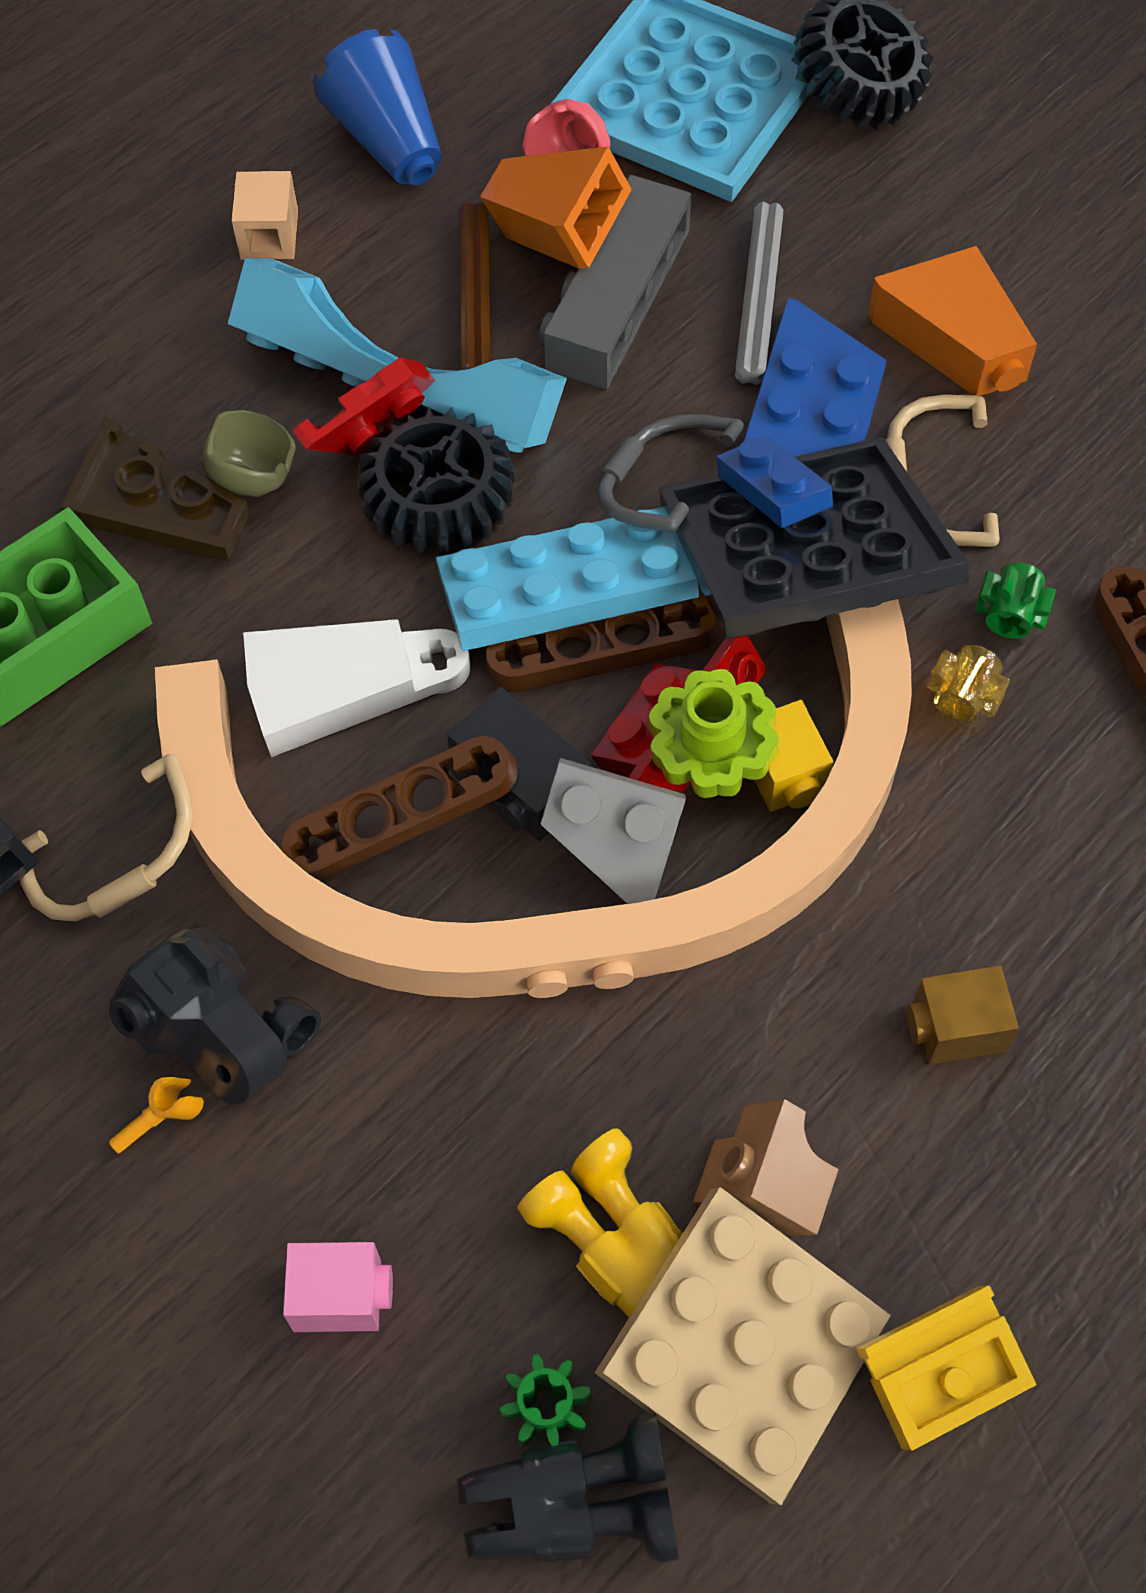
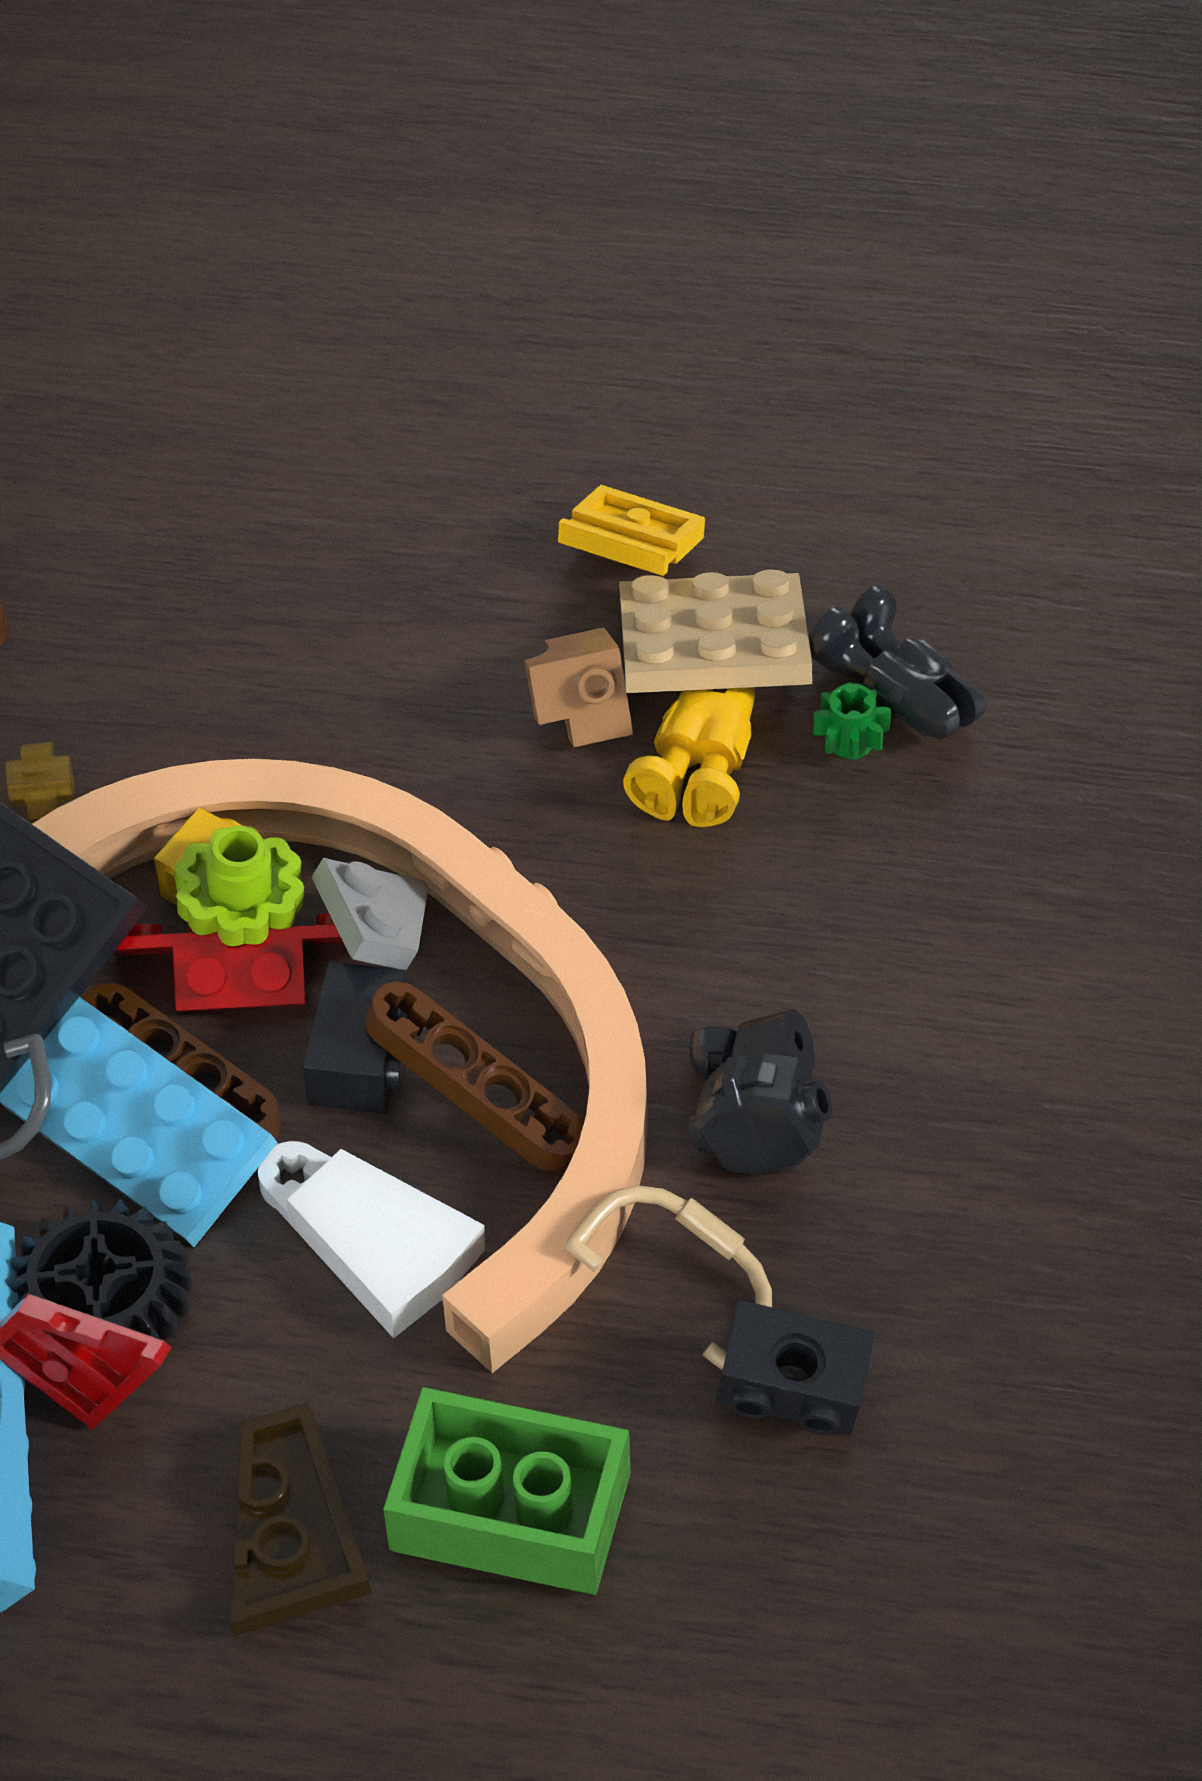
camera: 125 degrees left, 10 degrees down
(162, 1105) = (855, 1087): light orange hand -> none
(247, 453) = (188, 1457): olive hair -> none
(335, 1287) = (886, 885): bright pink brick -> none
(963, 1015) = (353, 645): pearl gold brick -> none

